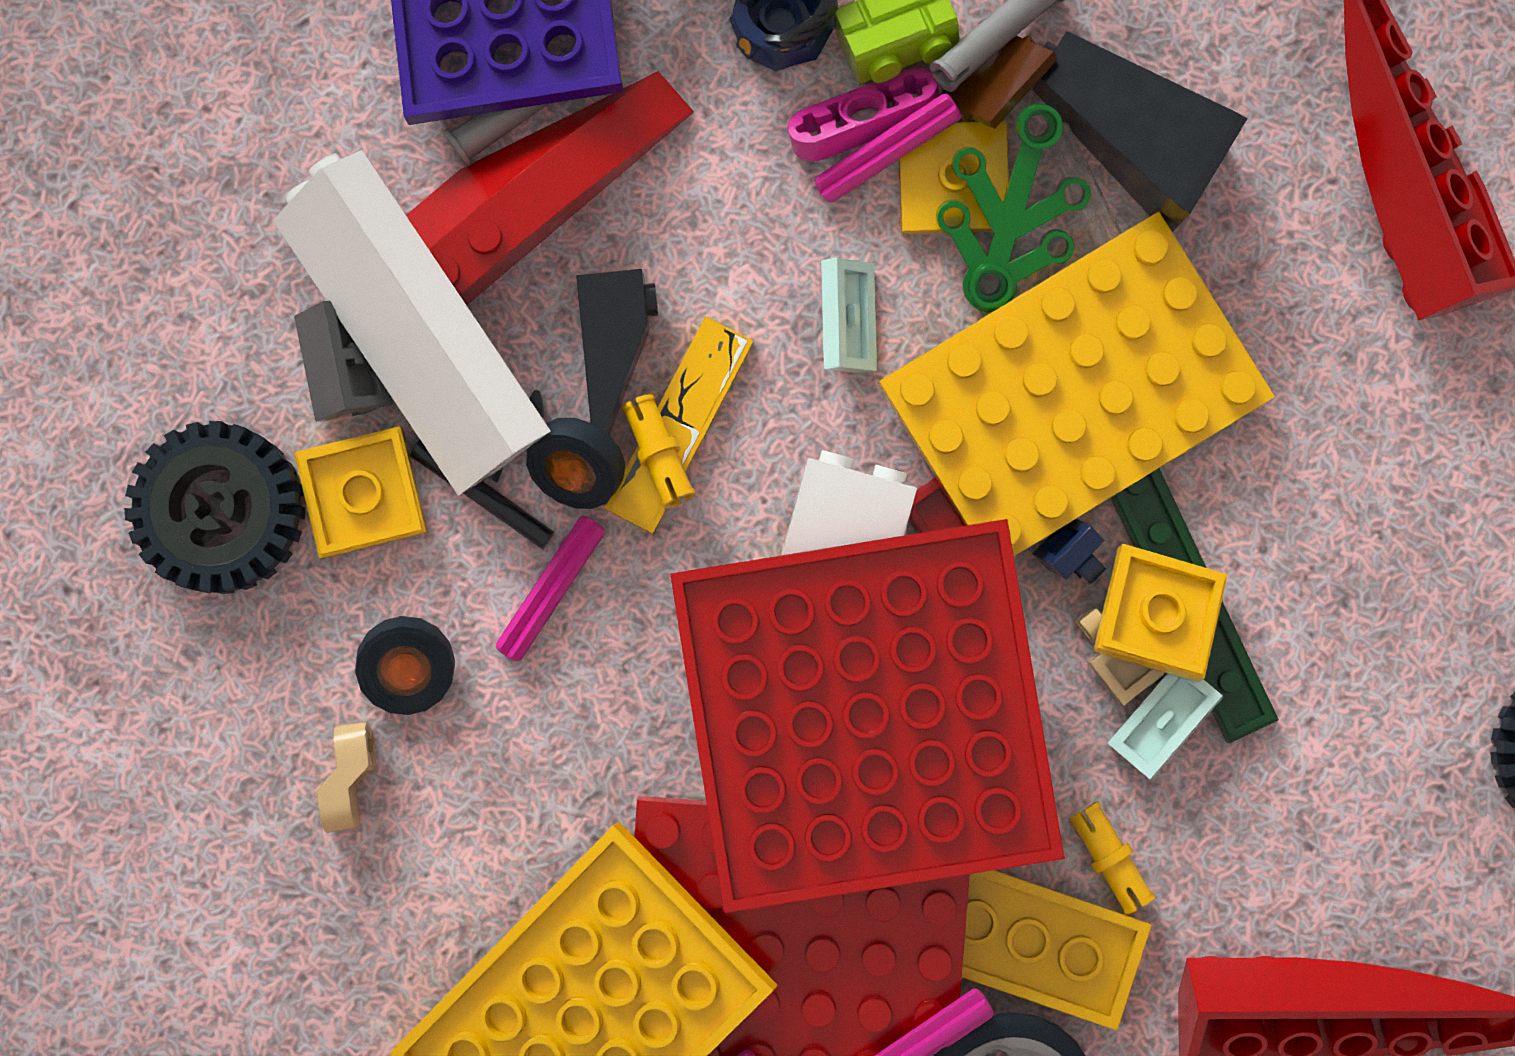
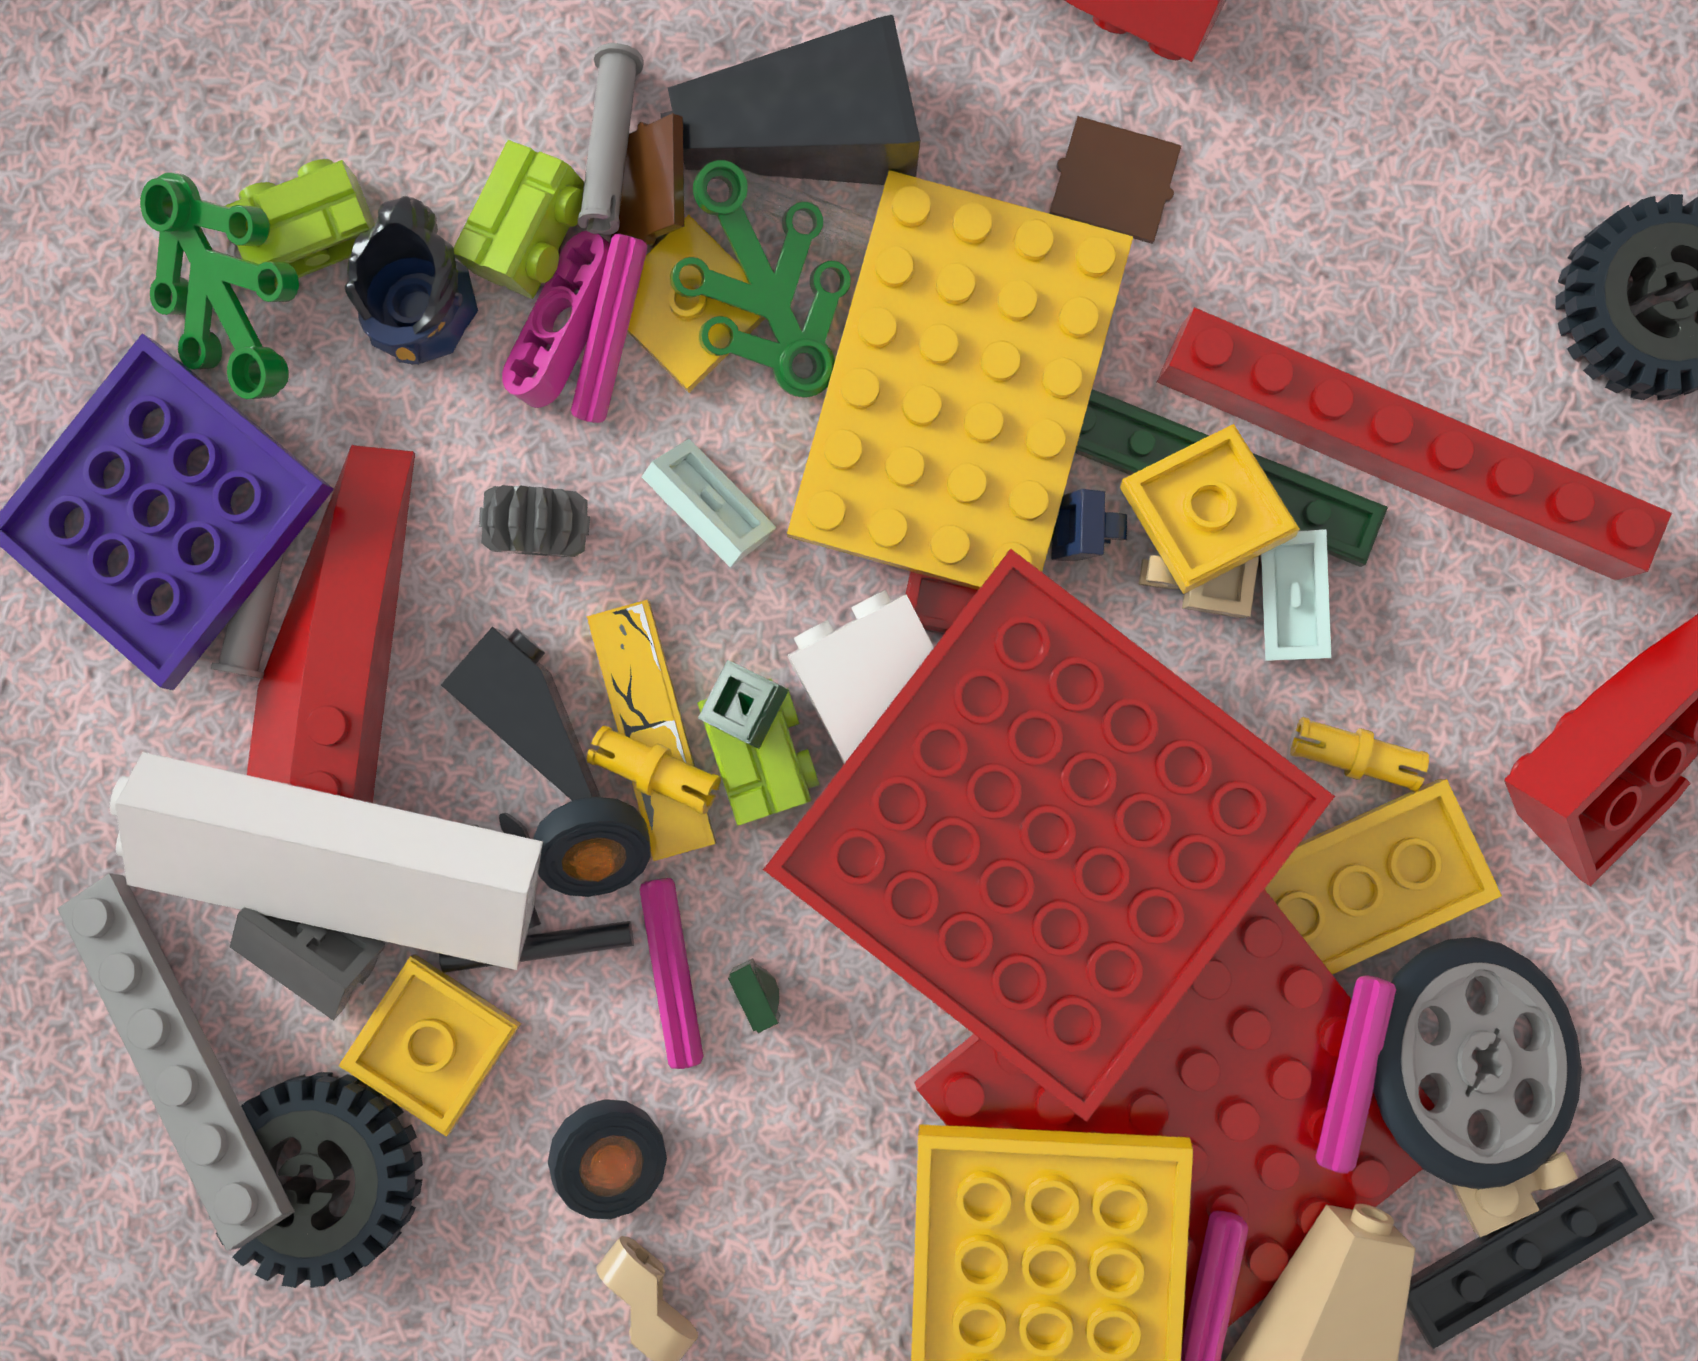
camera: 45 degrees left, 0 degrees up
(199, 355) = (175, 1062): none -> light grey plate
(591, 651) = (756, 994): none -> dark green tile
(728, 227) = (534, 521): none -> dark grey gear
(733, 500) = (768, 777): none -> lime brick
(752, 461) = (743, 704): none -> tile
(1301, 349) = (1115, 179): none -> reddish brown piece
(1329, 696) = (1413, 447): none -> red brick

